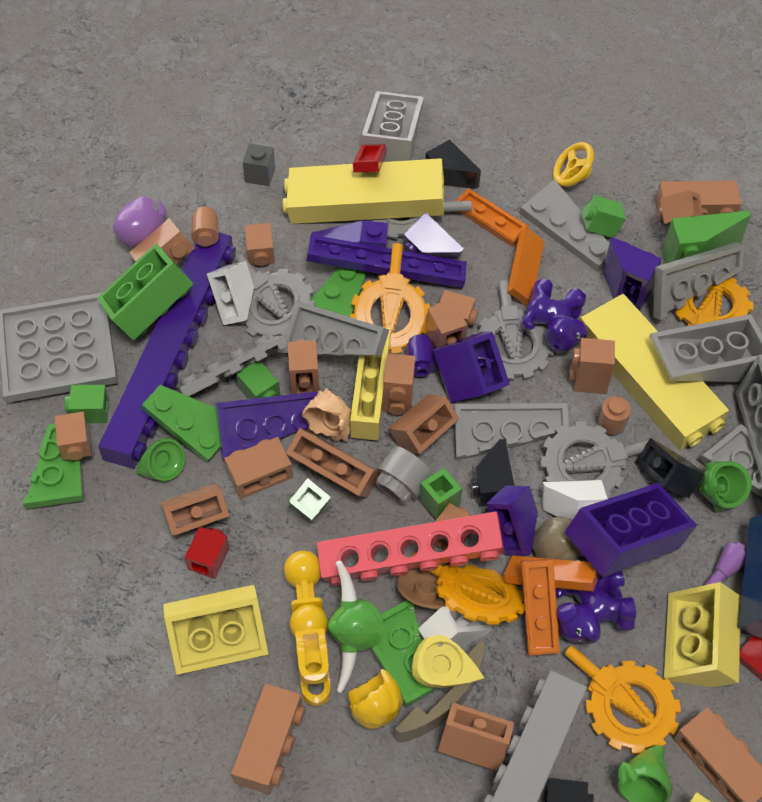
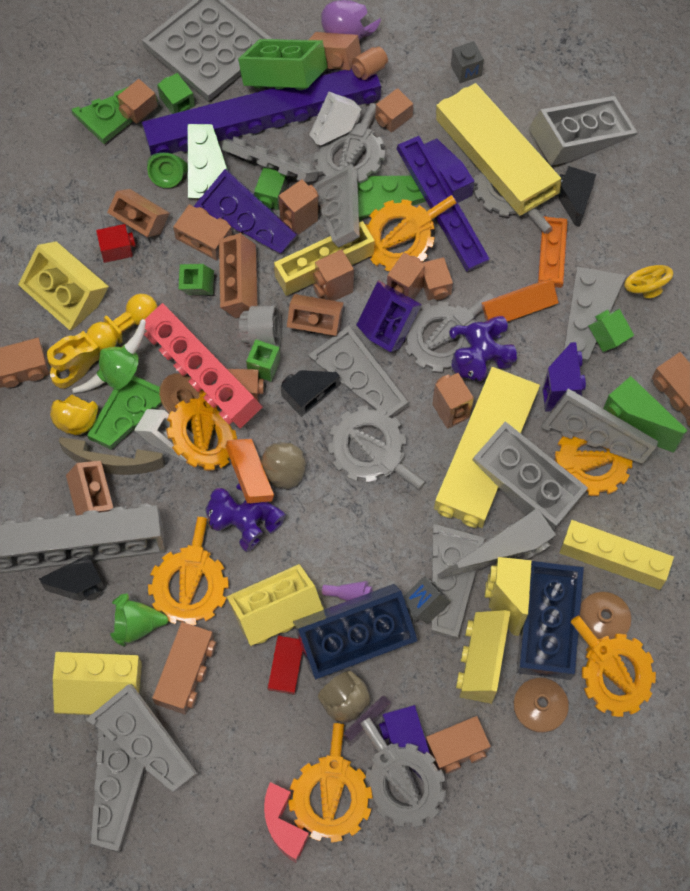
camera: 55 degrees right, 10 degrees up
(328, 416) = (272, 245): light nougat hair -> none
(370, 158) = (522, 129): red tile -> none
(421, 348) = (370, 277): dark purple brick -> none
(431, 239) = (488, 220): slope -> none
(443, 664) = (123, 438): light yellow piece -> none
(517, 518) = (276, 419): dark purple slope -> none
(540, 607) = (215, 475): orange tile -> none
(569, 496) = (326, 457): white slope -> none
(614, 415) = (421, 441): nougat brick -> none
(630, 529) = (317, 501): dark purple brick -> none
(669, 468) = (401, 506): black slope -> none
(680, 205) = (654, 380): nougat brick -> none
(725, 484) = (414, 552): bright green helmet -> none

